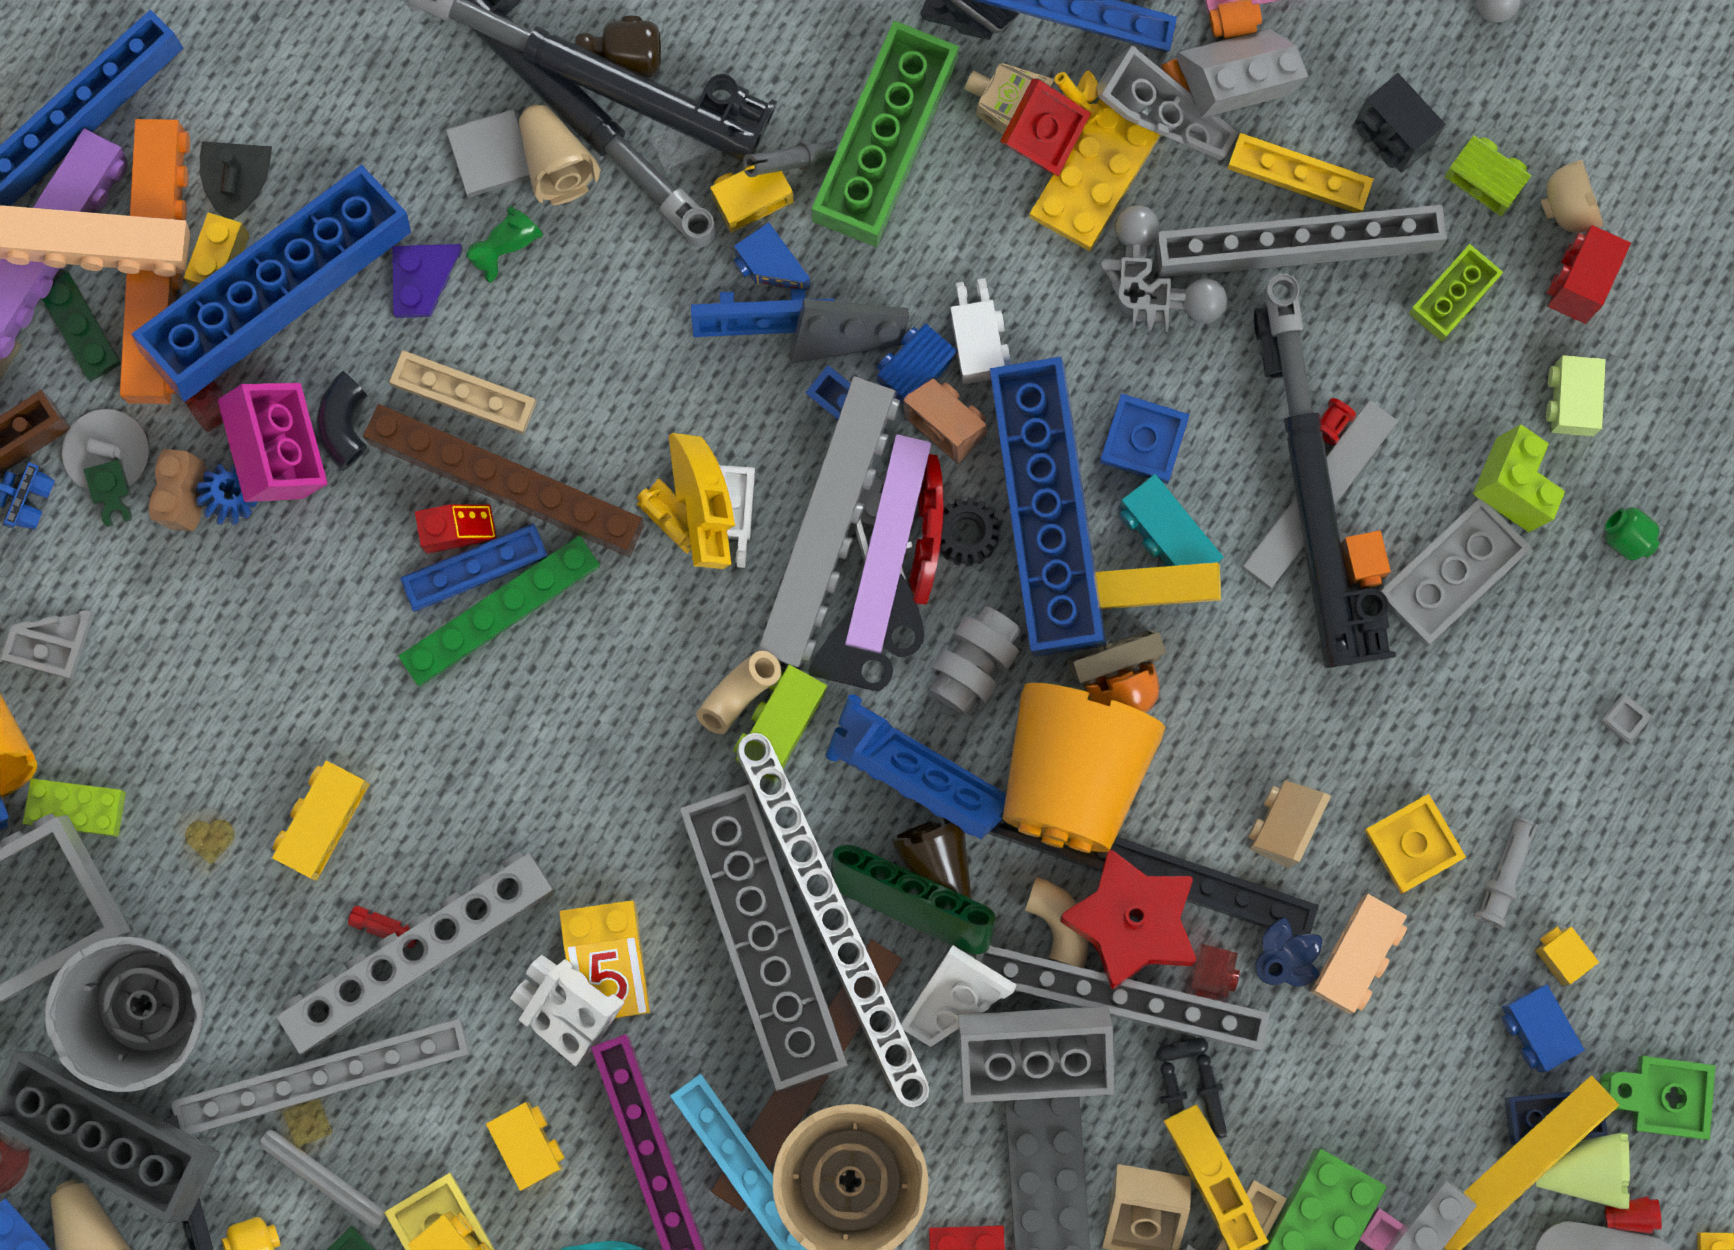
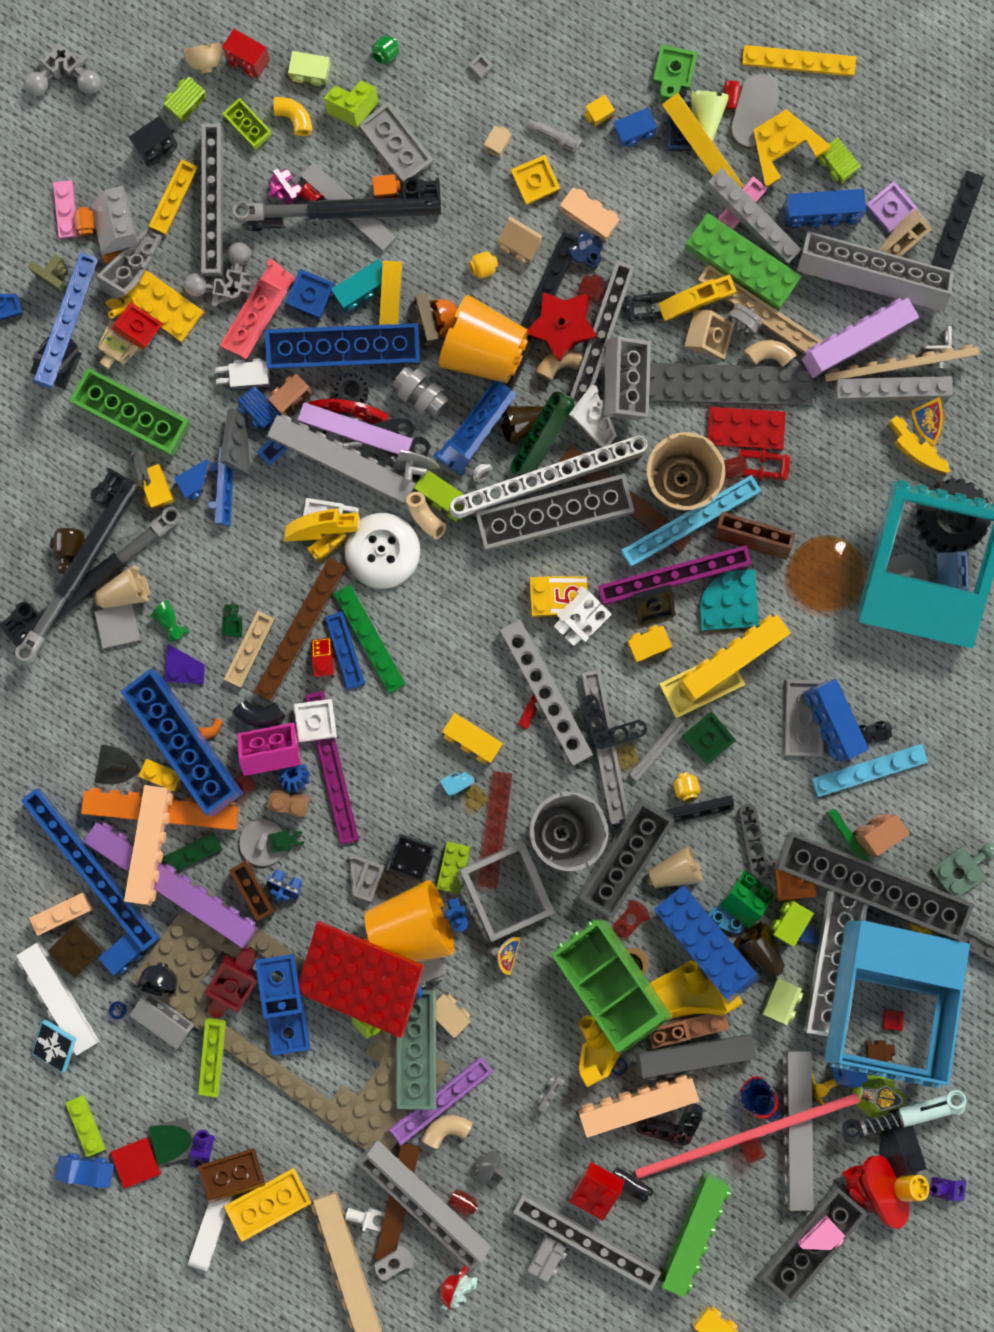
camera: 80 degrees left, 5 degrees up
(82, 725) = (411, 858): none -> black piece
(159, 880) = (495, 827): none -> clear red tile
(233, 798) = (456, 782): none -> medium azure rock
(251, 564) = (336, 784): none -> magenta tile
(306, 340) = (212, 731): none -> orange arm
(335, 524) = (315, 720): none -> white tile
(348, 1069) = (602, 729): none -> black beam
(506, 356) = (231, 623): none -> dark green plate
(600, 1148) = (654, 604): none -> black tile
(668, 660) = (381, 573): none -> white brick
(830, 659) = (413, 464): none -> light grey shield
(833, 793) = (482, 472): none -> white animal
(1101, 344) = (257, 310): none -> coral hinge
(1235, 757) = (483, 265): none -> yellow head
(1340, 366) = (281, 188): none -> dark pink hips
(1481, 763) = (497, 141): none -> tan brick
(1488, 378) = (296, 113): none -> yellow cylinder

